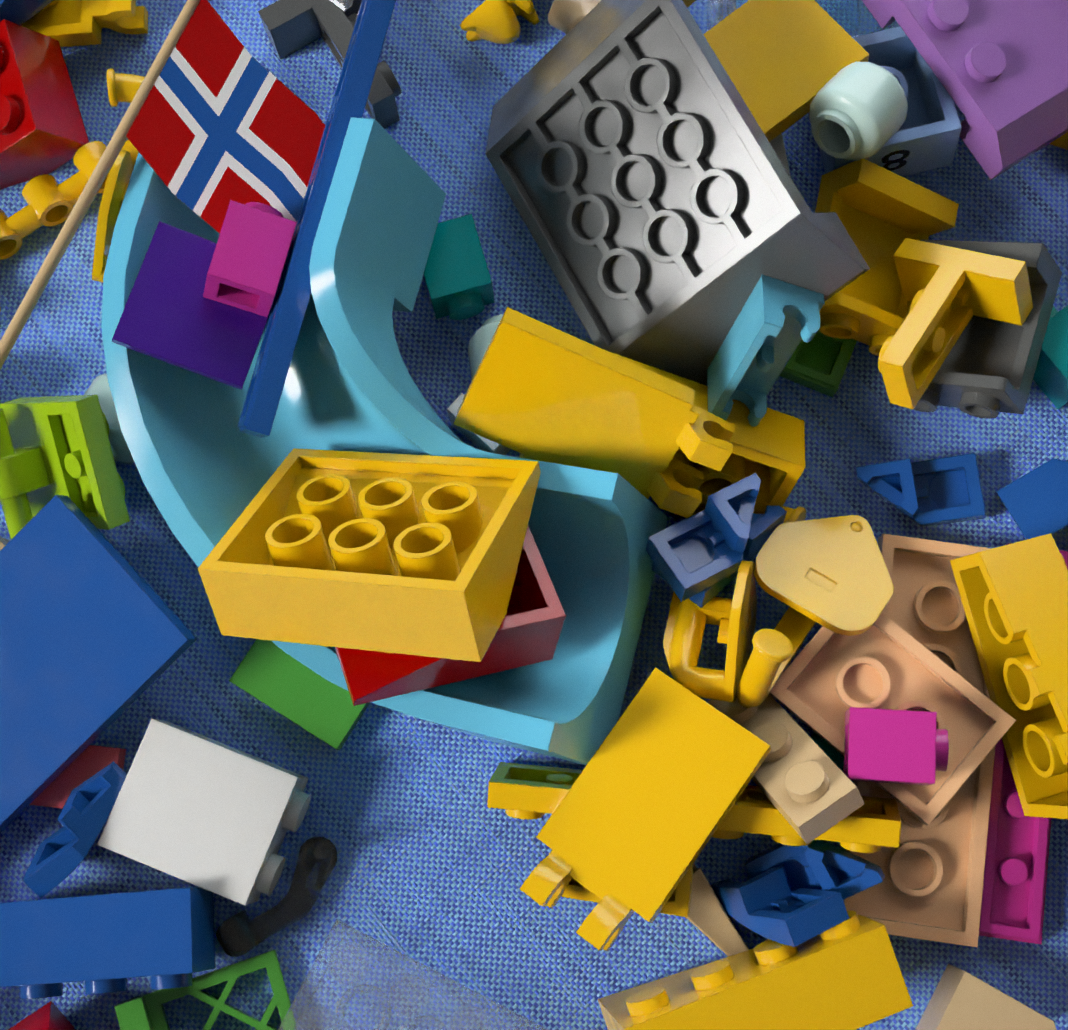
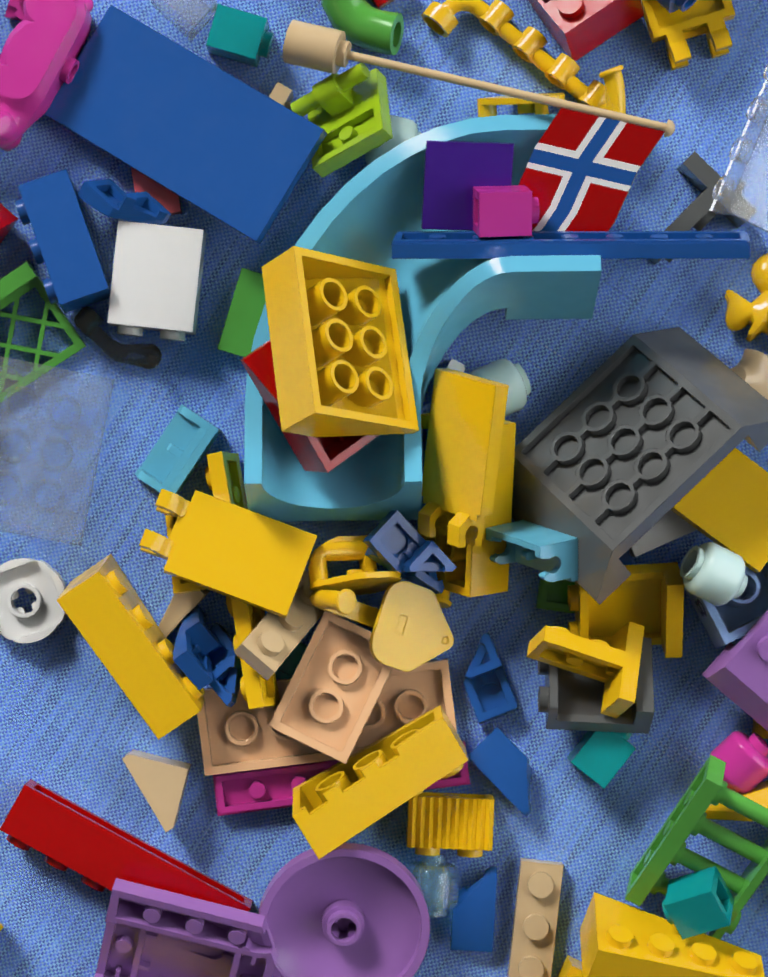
camera: 70 degrees right, 10 degrees up
(457, 270) = (550, 338): teal brick -> none
(471, 851) = (178, 451): none -> medium azure hinge
(894, 746) = (307, 691): dark pink brick -> none

